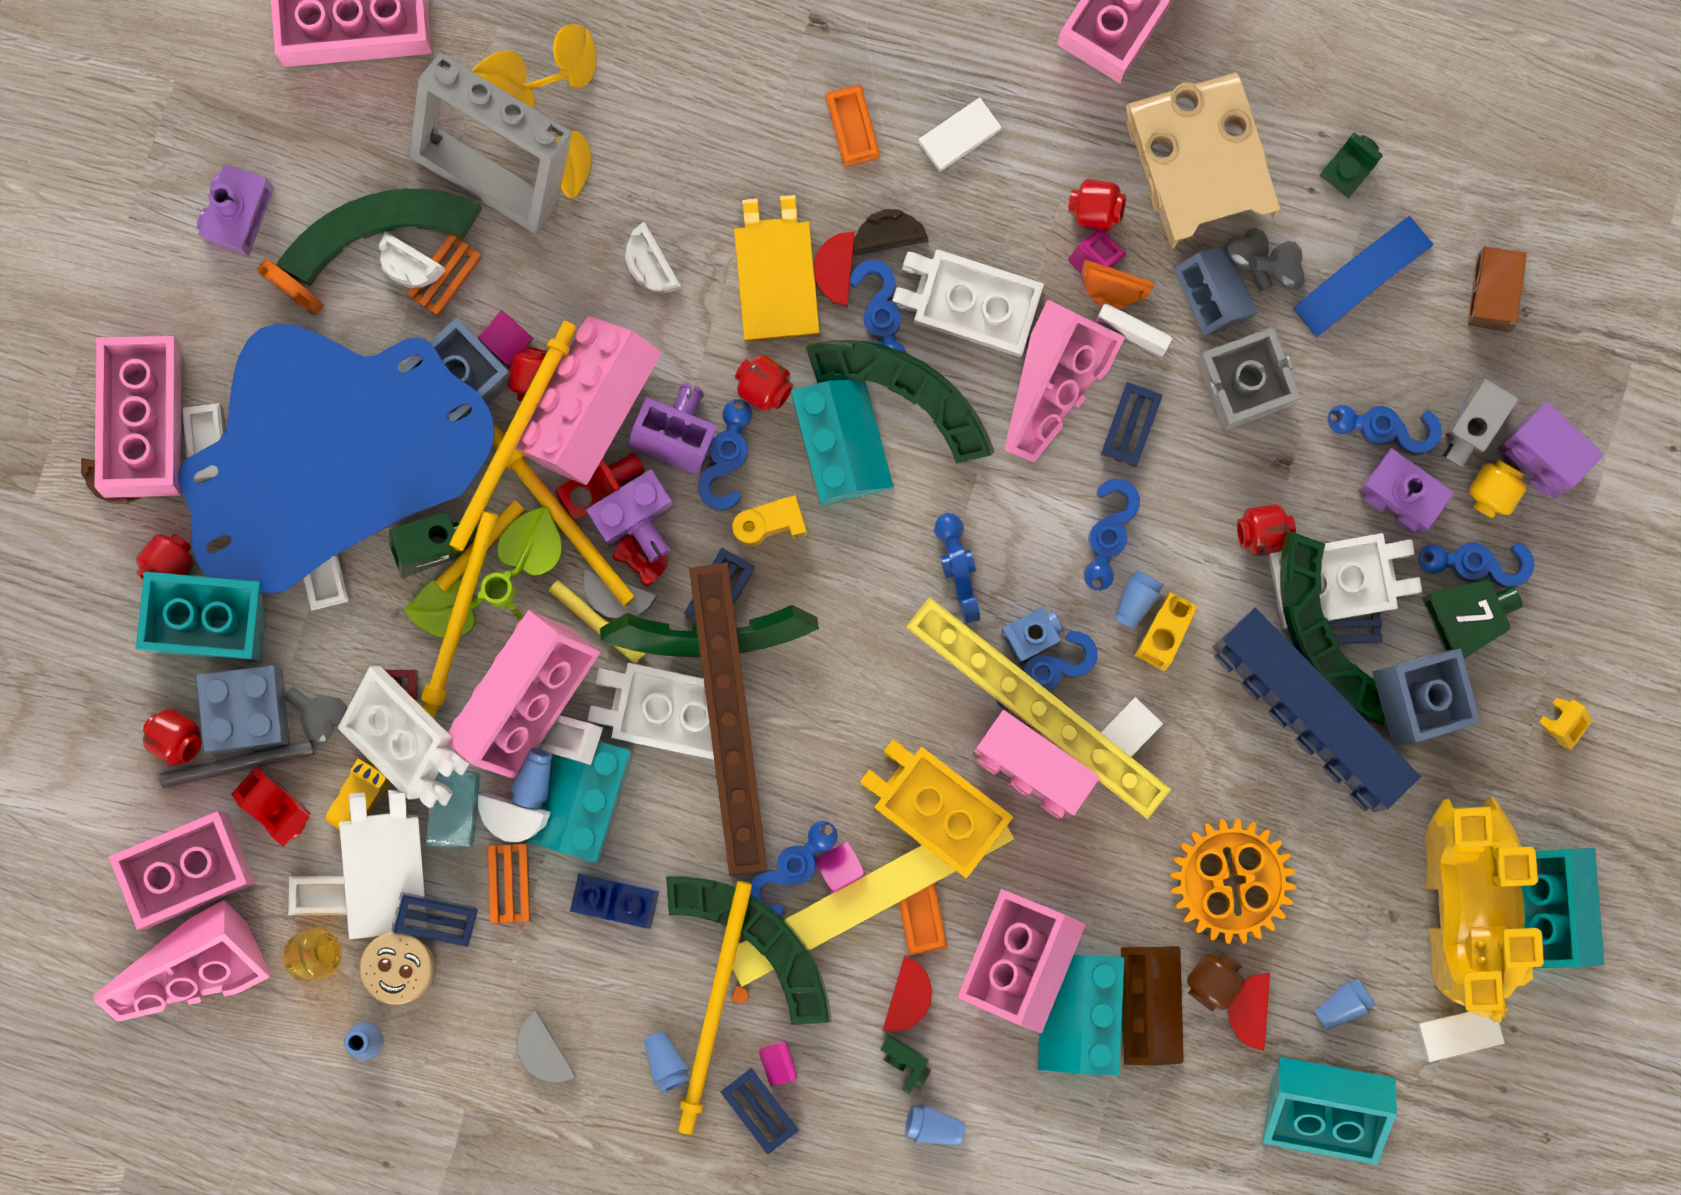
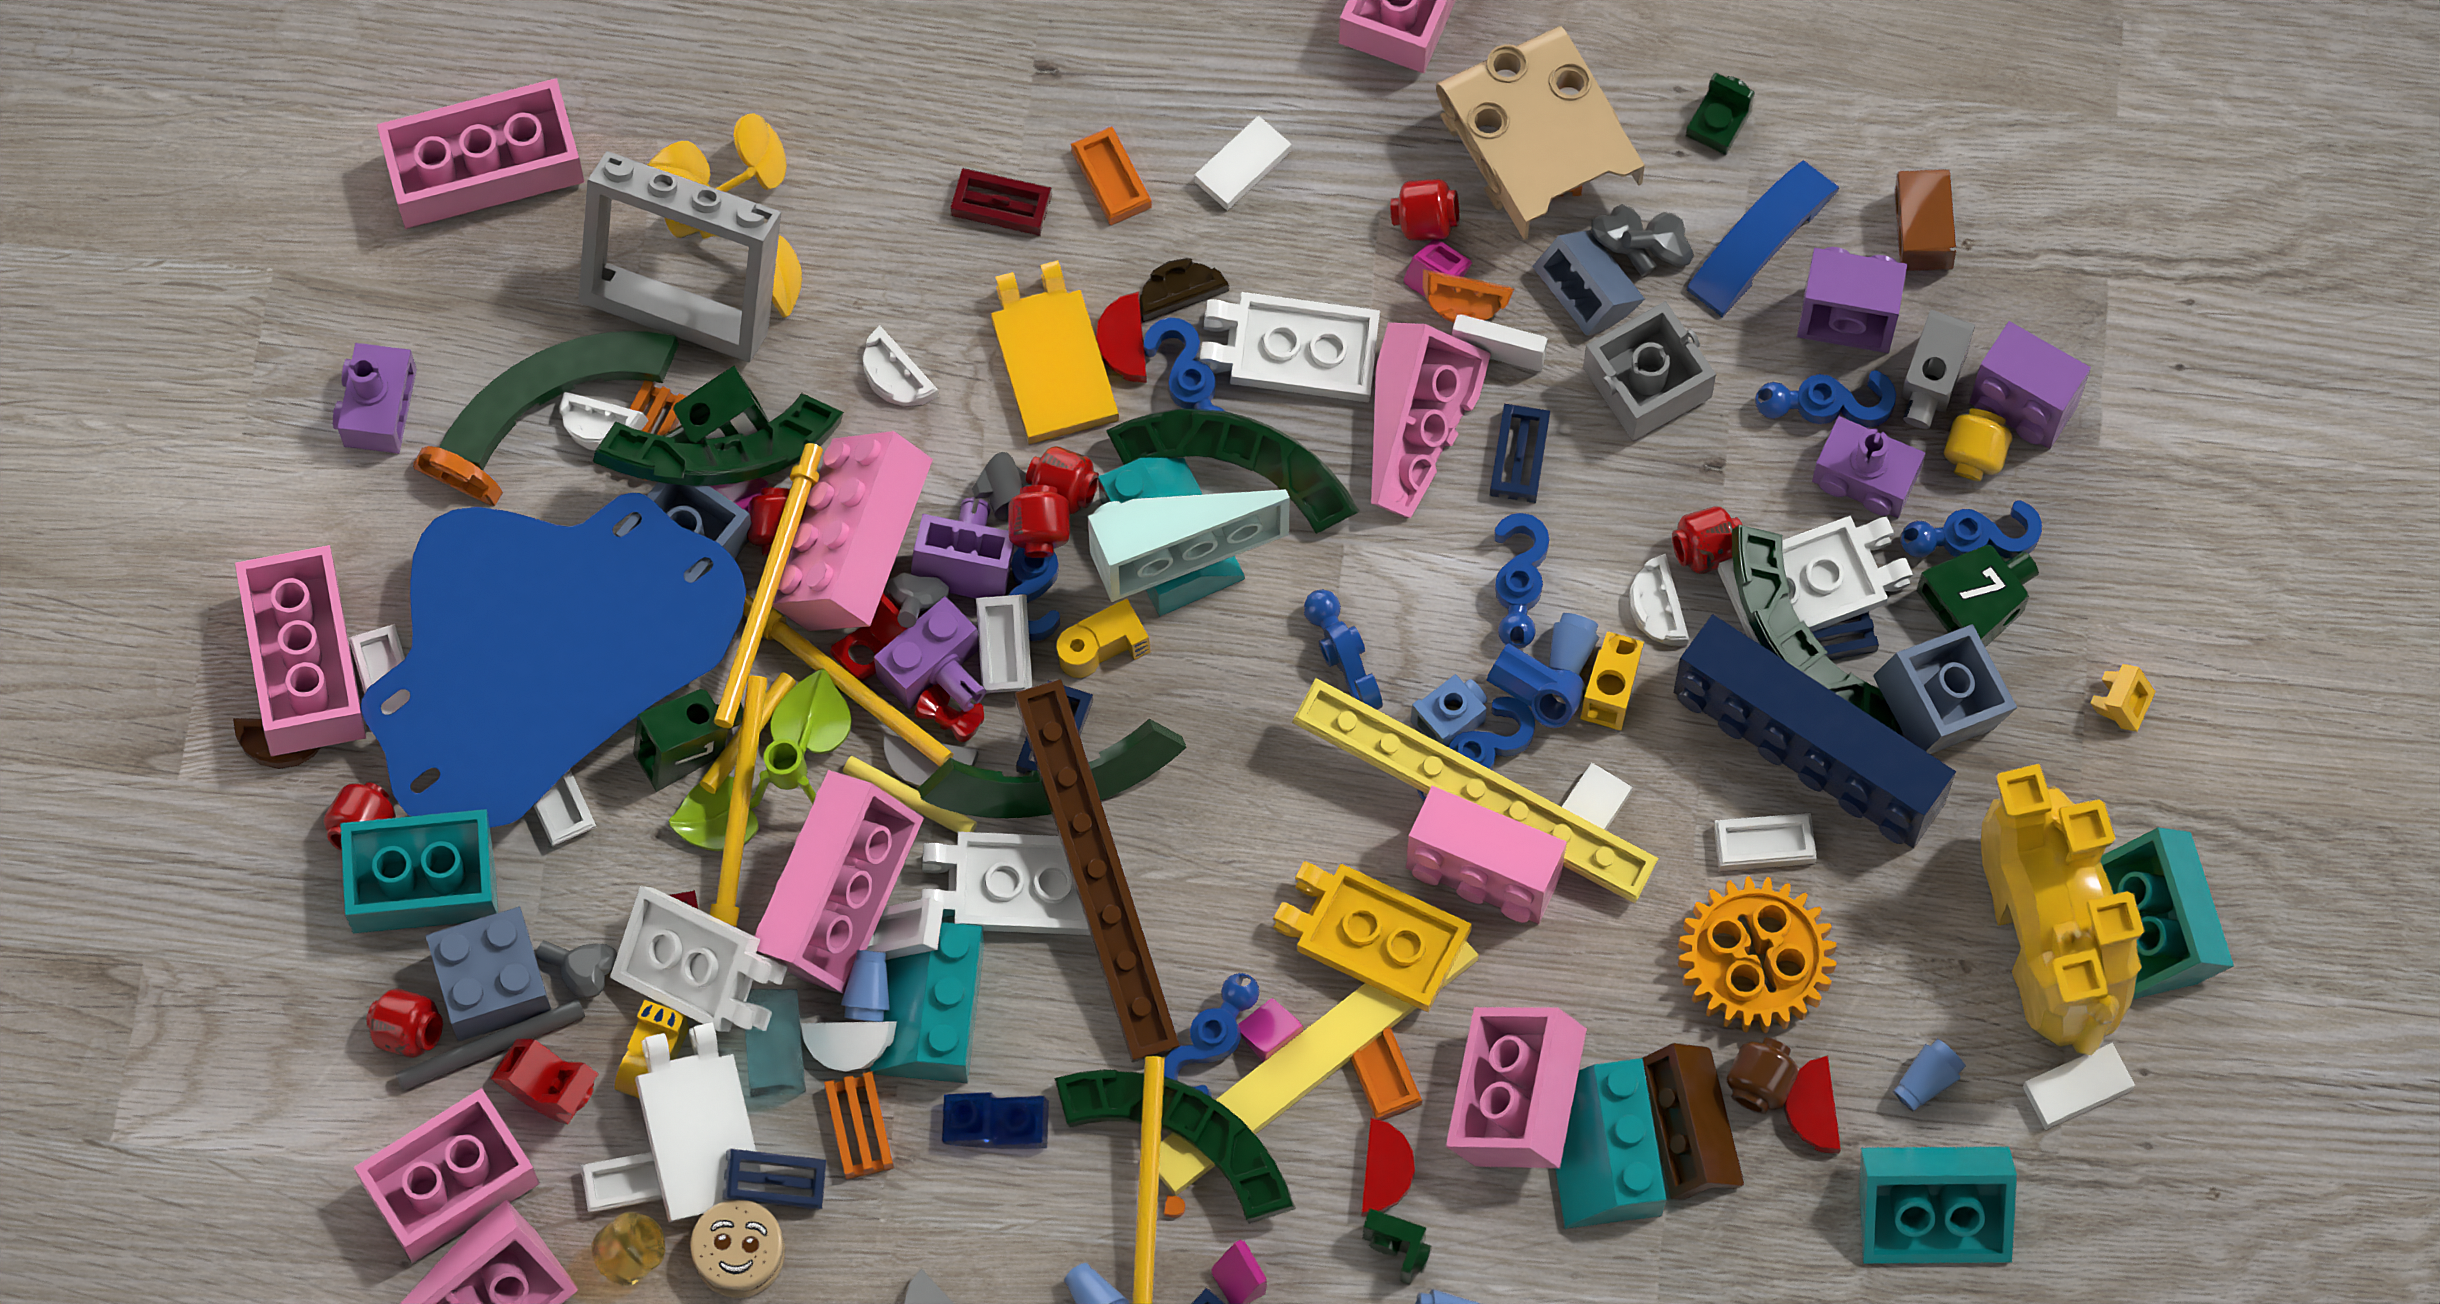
camera: 10 degrees left, 15 degrees down
(496, 320) = (723, 458): none -> dark green tile
(500, 282) = (718, 410): none -> dark green torso
(628, 462) = (915, 595): none -> dark grey rock
(692, 512) = (1004, 643): none -> white tile
(716, 377) = (1000, 483): none -> dark grey piece
(736, 420) = (1038, 520): none -> red head
(756, 146) = (996, 217): none -> dark red tile
(825, 464) = (1168, 537): none -> light aqua slope
(1114, 637) = (1534, 685): none -> blue piece
(1213, 572) = (1656, 604): none -> white tile
(1258, 786) = (1764, 842): none -> white tile
(1424, 349) = (1852, 299): none -> medium lavender brick

